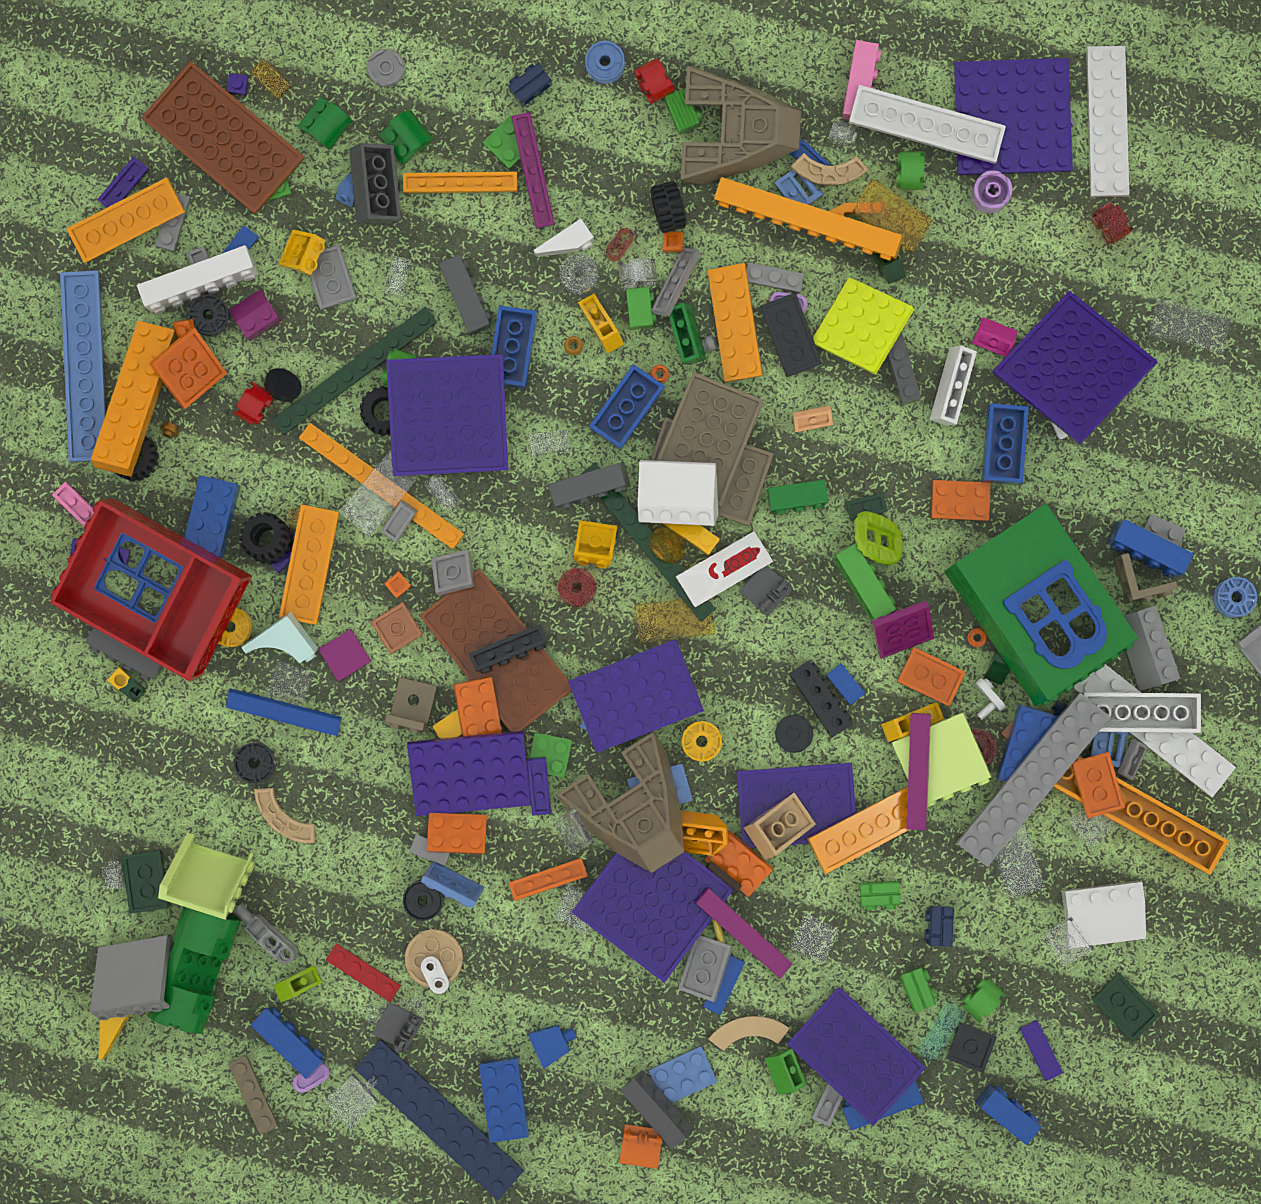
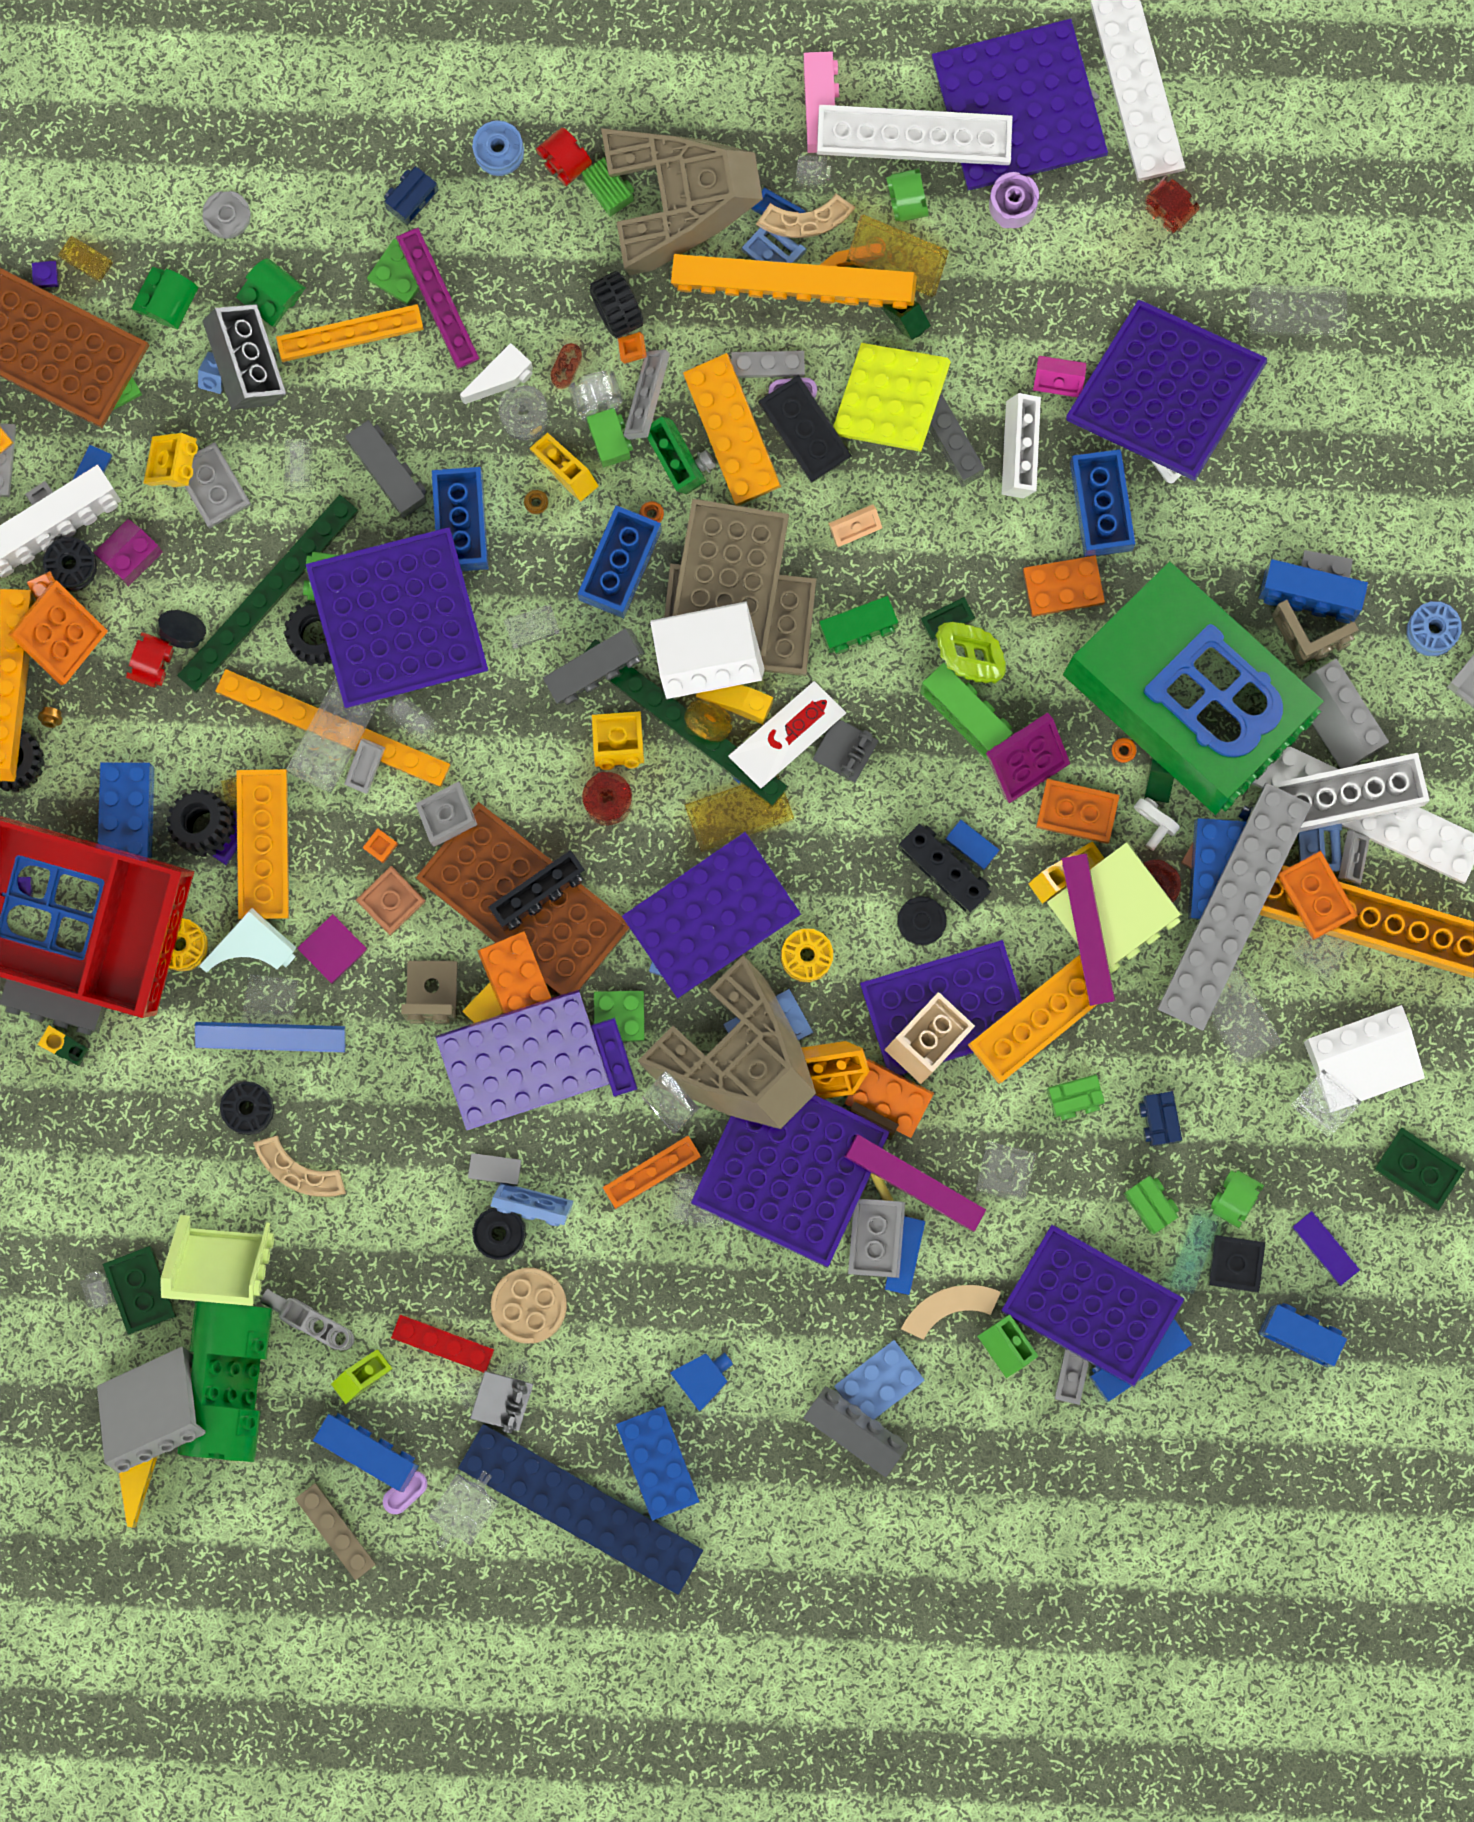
camera: 10 degrees left, 5 degrees down
(434, 975) = (534, 1324): white plate -> none
(456, 833) = (523, 1140): orange plate -> none
(640, 1146) = (846, 1485): orange hinge -> none

